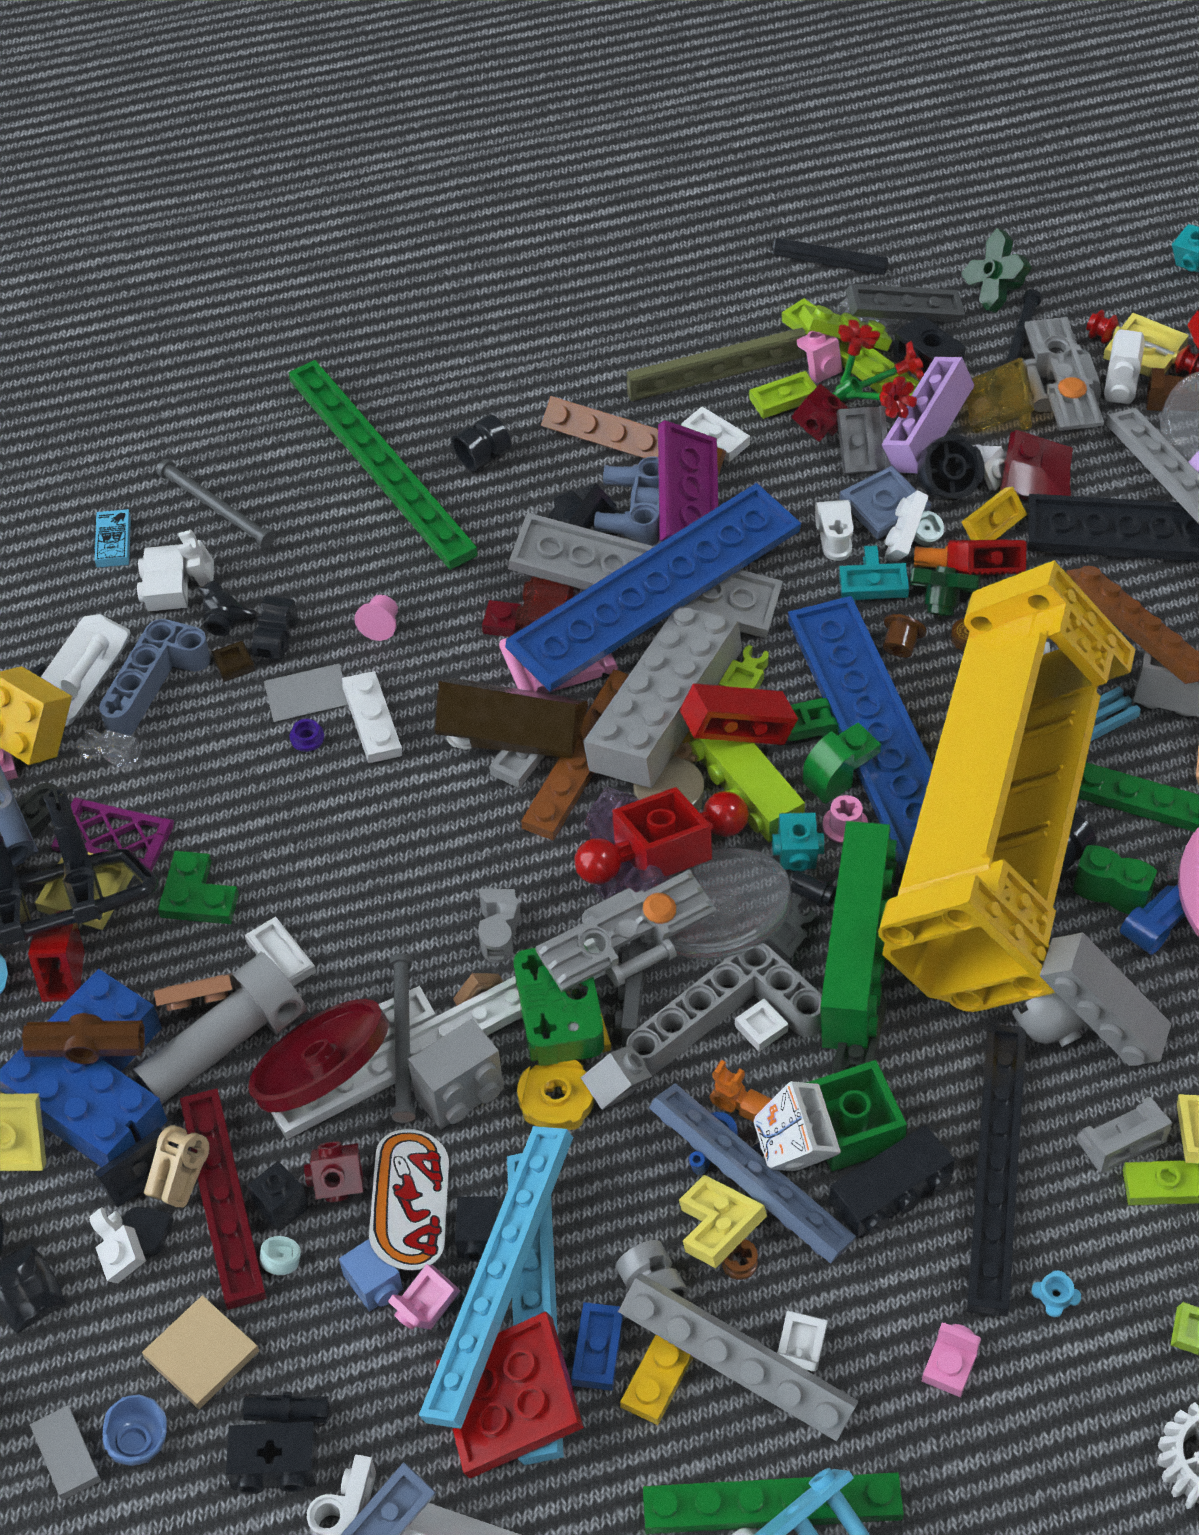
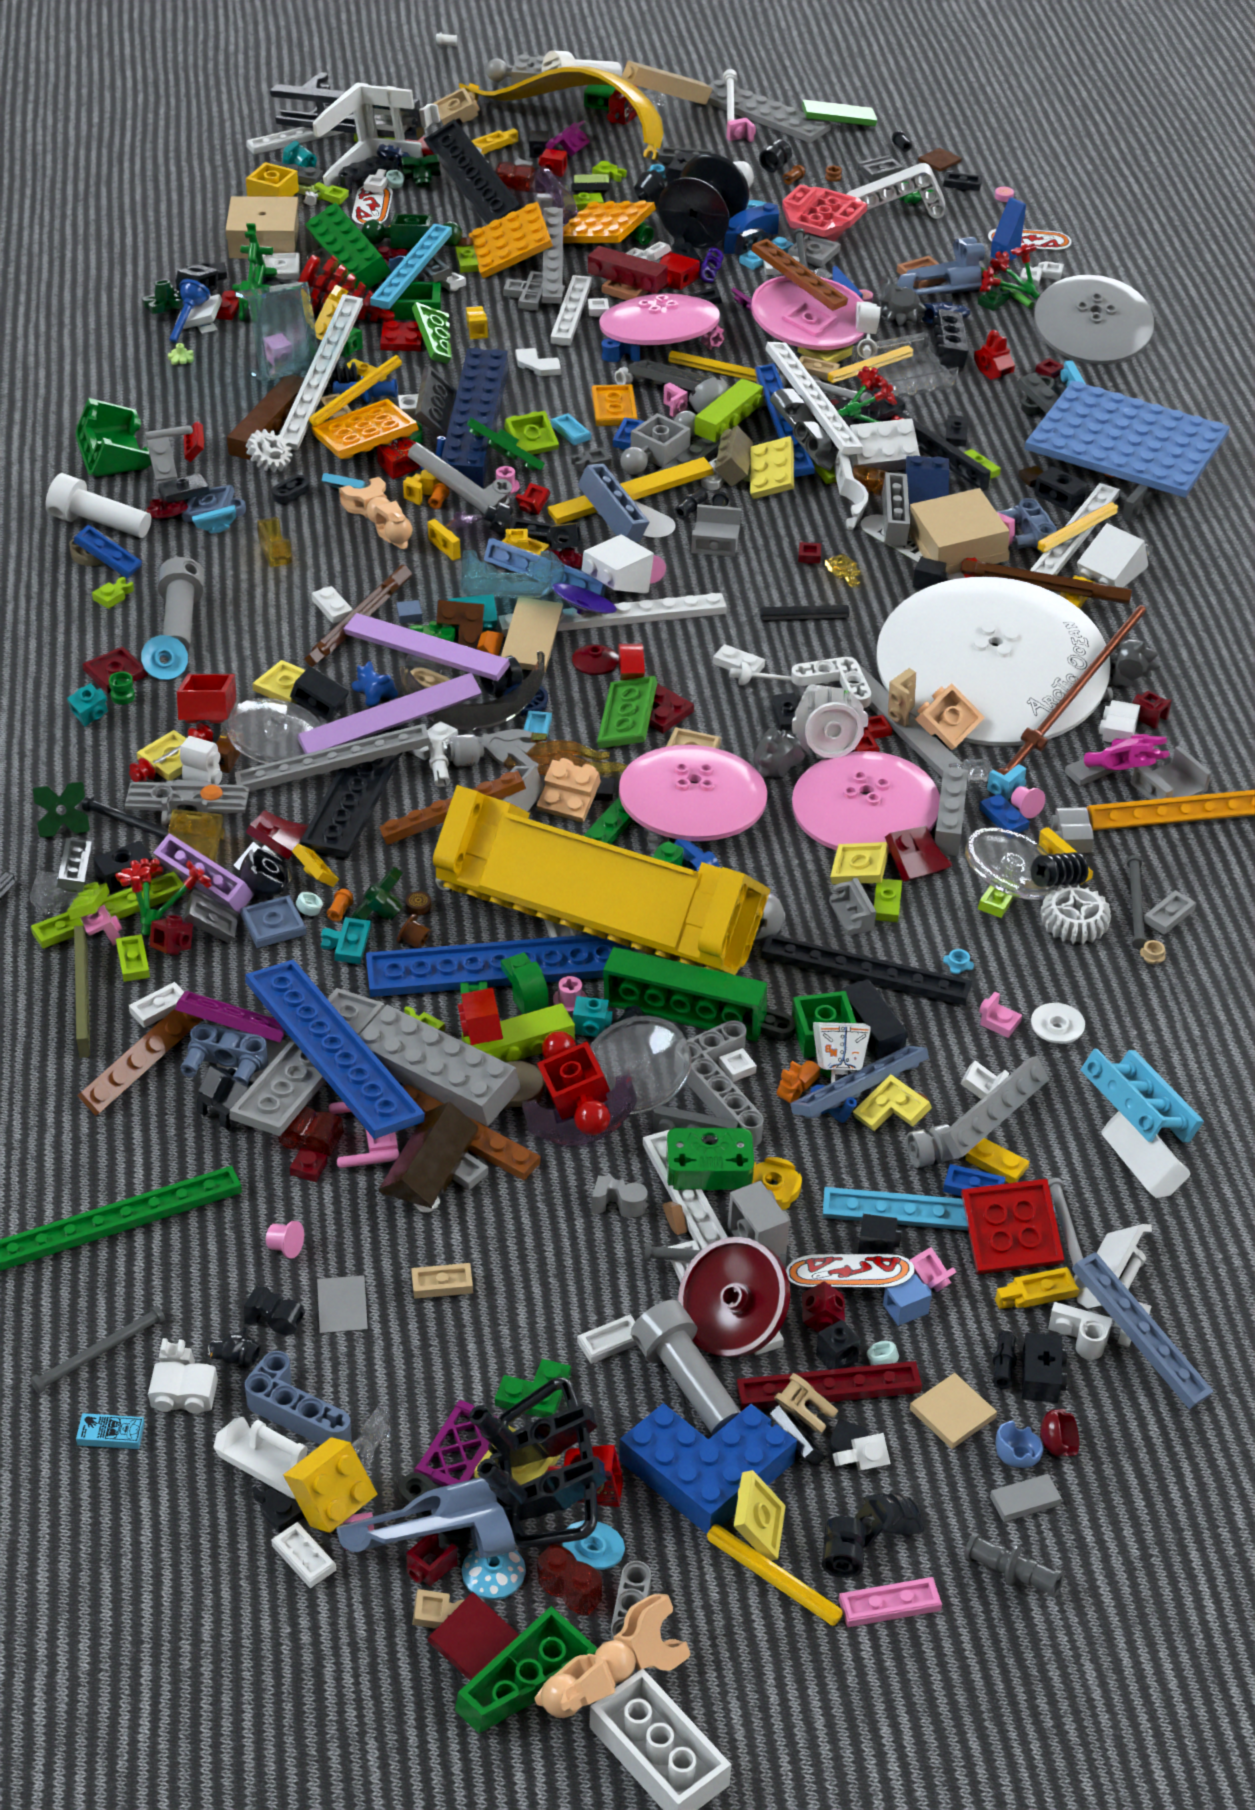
camera: 85 degrees left, 10 degrees down
(83, 1038) = (699, 1436): reddish brown piece -> none
(156, 1485) = (1060, 1433): none -> dark red hair
(180, 995) = (648, 1380): nougat plate -> none
(233, 661) = (295, 1347): dark brown tile -> none
(306, 728) = (393, 1296): dark purple plate -> none
(341, 771) = (442, 1280): none -> tan plate
(371, 717) = (386, 1258): white plate -> none
(415, 1442) = (1037, 1289): none -> yellow hinge
(481, 442) = (111, 1148): black wheel -> none
(496, 1278) = (928, 1214): medium azure plate -> none
(528, 1479) = (1056, 1187): none -> light grey bar
(616, 1076) = (774, 1138): light grey brick -> none
(620, 919) = (658, 1096): light grey piece -> none
(759, 1501) = (1086, 1126): green plate -> none
(835, 528) = (288, 947): white piece -> none
(902, 535) = (312, 907): white plate -> none
(957, 1425) = (1058, 1023): none -> white dish
(987, 556) = (362, 869): red brick -> none
(1105, 999) = (775, 876): light grey brick -> none

